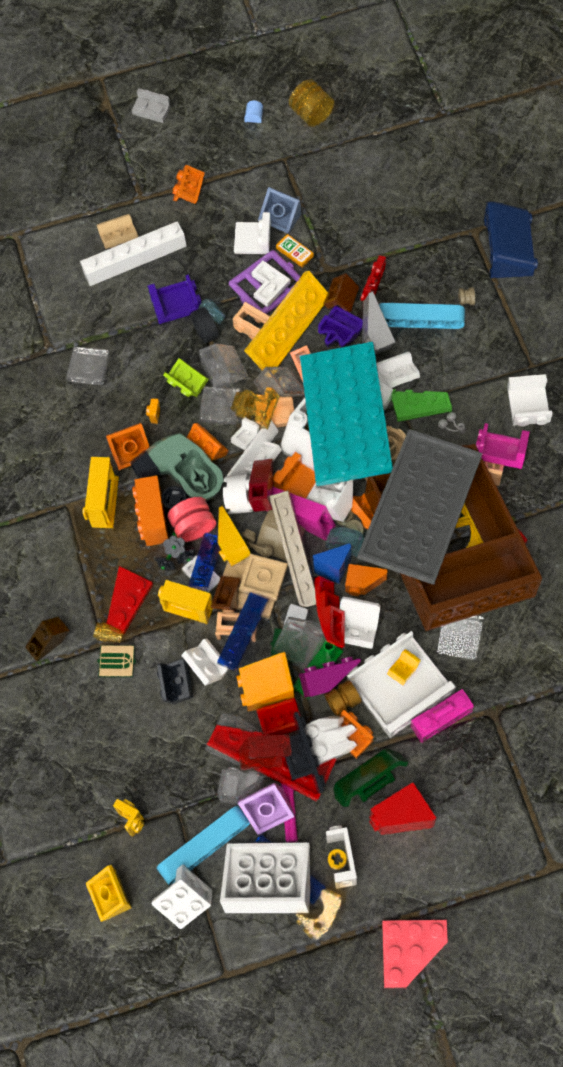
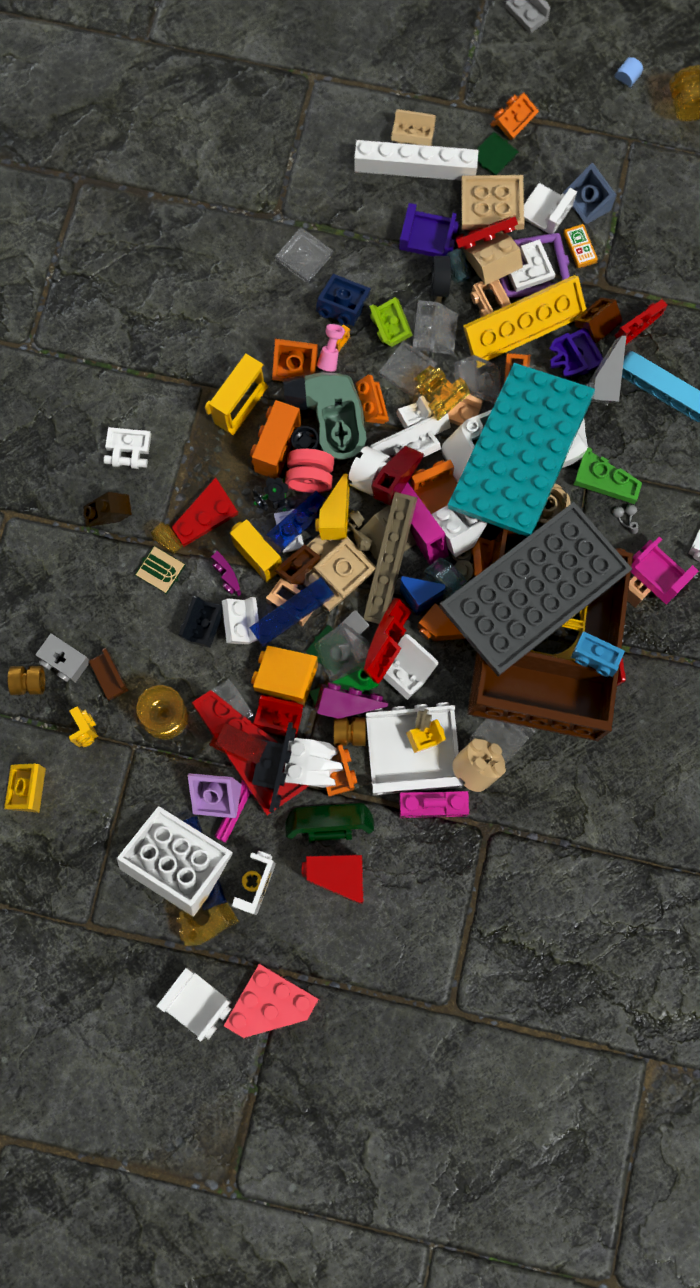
camera: 25 degrees right, 10 degrees up
(31, 577) = (127, 440): none -> white plate
(60, 806) = (25, 680): none -> pearl gold wheel
(72, 766) = (53, 649): none -> light grey brick
(124, 765) = (108, 675): none -> reddish brown panel
(139, 382) = (342, 300): none -> dark blue plate
(153, 427) = (329, 354): none -> bright pink piece
(178, 637) = (228, 578): none -> magenta slope
(181, 758) = (160, 700): none -> clear yellow wheel
(184, 898) = (89, 834): white bracket -> none
(190, 218) = (495, 154): none -> dark green piece
(204, 843) = (135, 794): medium azure beam -> none
(210, 253) = (491, 199): none -> tan plate
(232, 262) = (488, 233): none -> red wing
(234, 289) = (494, 257): none -> tan slope
(238, 785) = (197, 759): clear slope -> none
(352, 984) = (195, 1004): none -> white panel
(395, 655) = (423, 720): none -> dark tan plate
(398, 369) = (606, 431): white bracket -> none
(458, 664) = (479, 764): none -> tan brick
(497, 528) = (597, 654): none -> dark azure bracket

